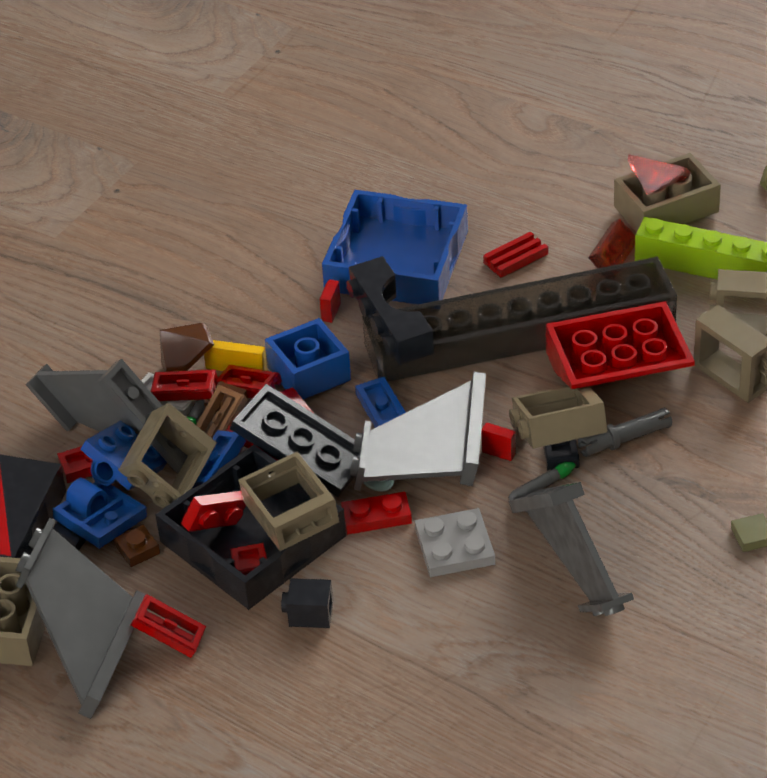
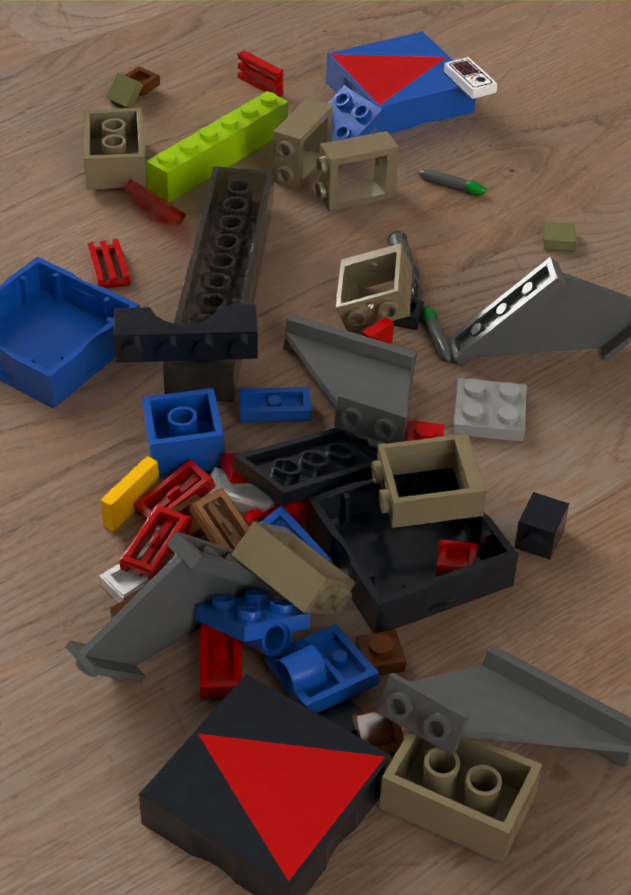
camera: 75 degrees left, 0 degrees up
(167, 630) = (542, 649): red tile -> none
(184, 346) = (102, 526): reddish brown slope -> none
(214, 511) = (396, 554): red plate -> none
(330, 301) = (90, 398): red tile -> none
(616, 345) = (312, 230): red slope -> none
(656, 174) = (105, 131): clear red slope -> none

